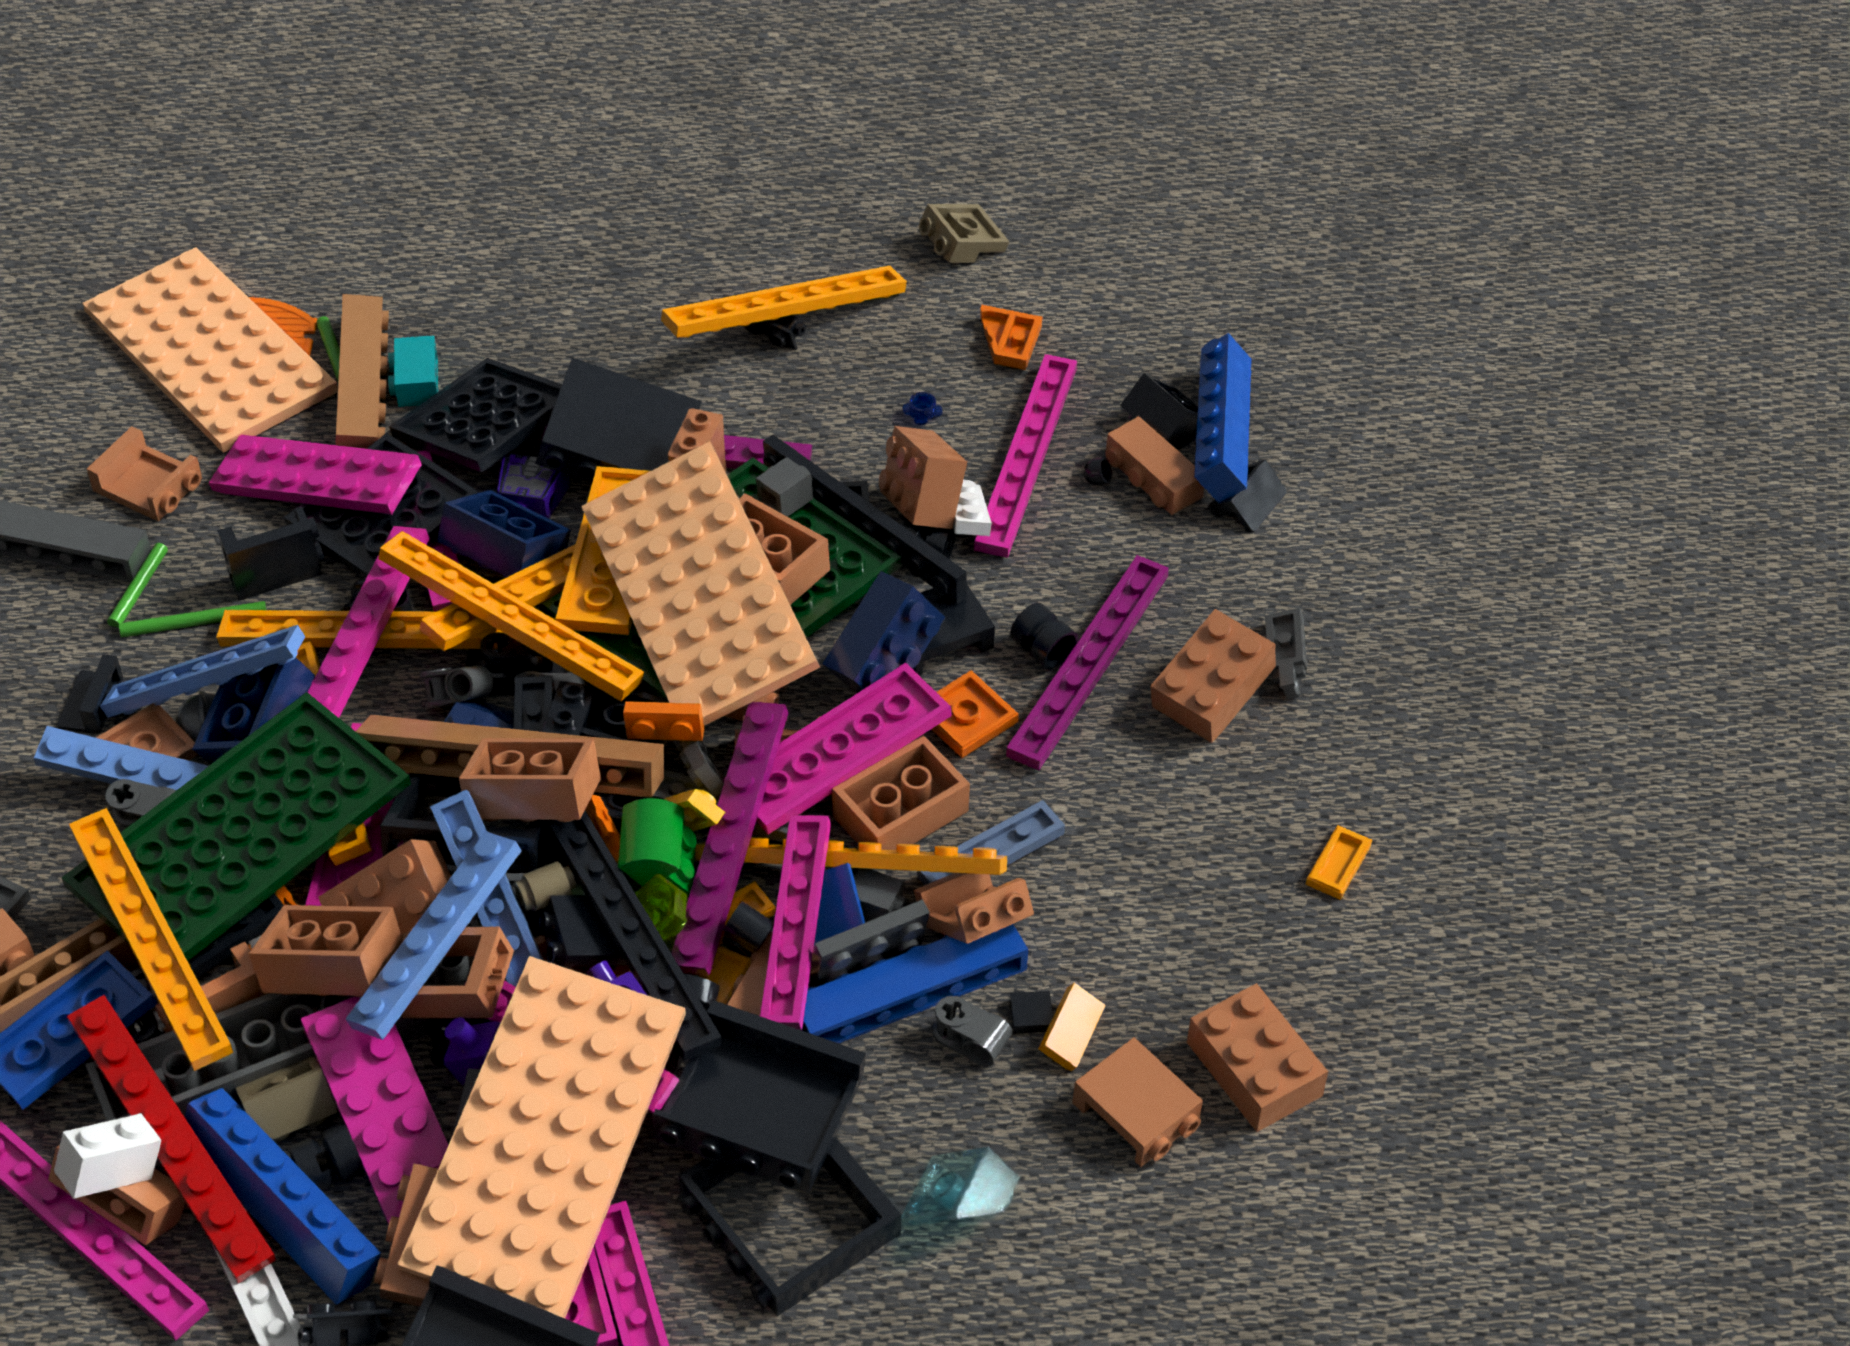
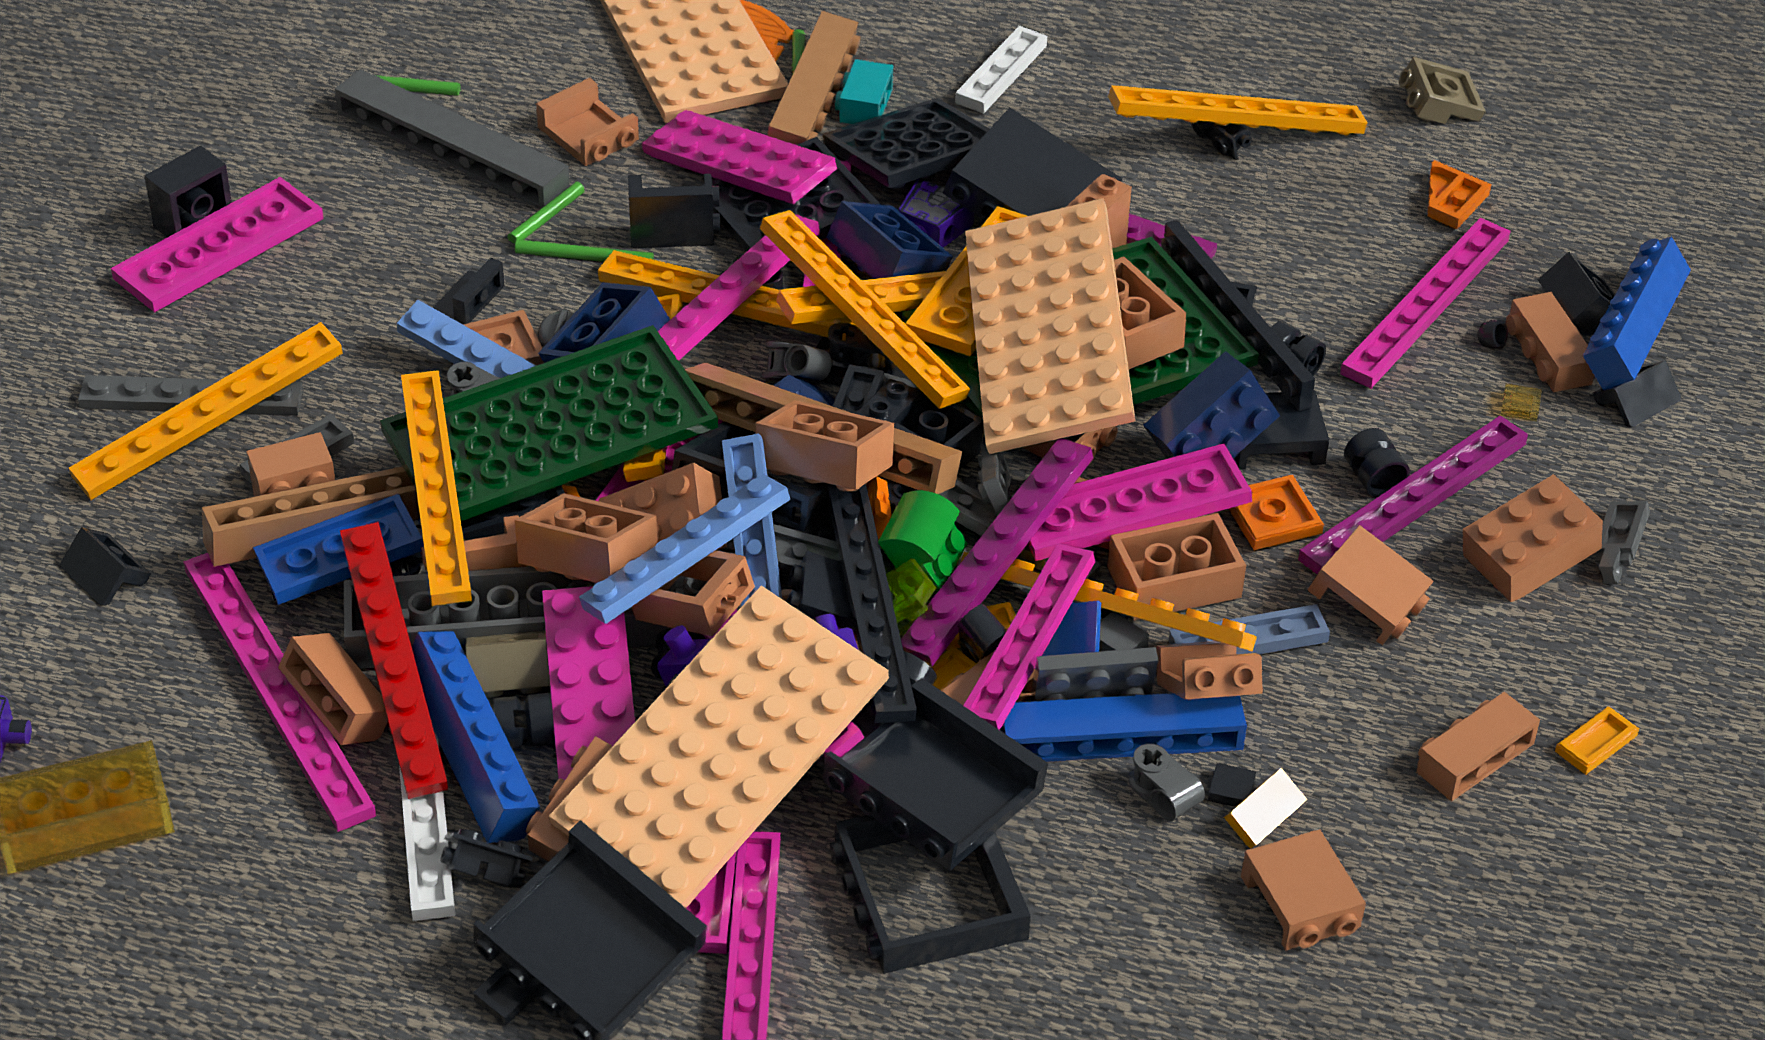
camera: 20 degrees right, 5 degrees down
(107, 1155) = (331, 652): white brick -> none
(202, 671) = (579, 287): medium blue plate -> none
(538, 311) = (1001, 69): none -> white plate
(538, 885) = (805, 538): dark tan brick -> none
(664, 721) = (971, 432): orange plate -> none
(699, 808) = (974, 516): yellow plate -> none
(785, 487) = (1169, 265): dark grey brick -> none
(922, 408) = (1339, 237): clear blue plate -> none
(922, 477) = (1307, 289): nougat brick -> none
(961, 1188) = (1101, 914): clear light blue slope -> none
(972, 512) = (1345, 331): white plate -> none
(1089, 763) = (1374, 582): none -> nougat panel
(1148, 534) = (1521, 402): none -> clear yellow tile
(1238, 902) = (1477, 745): none -> nougat brick
(1257, 1057) = (1438, 884): nougat brick -> none

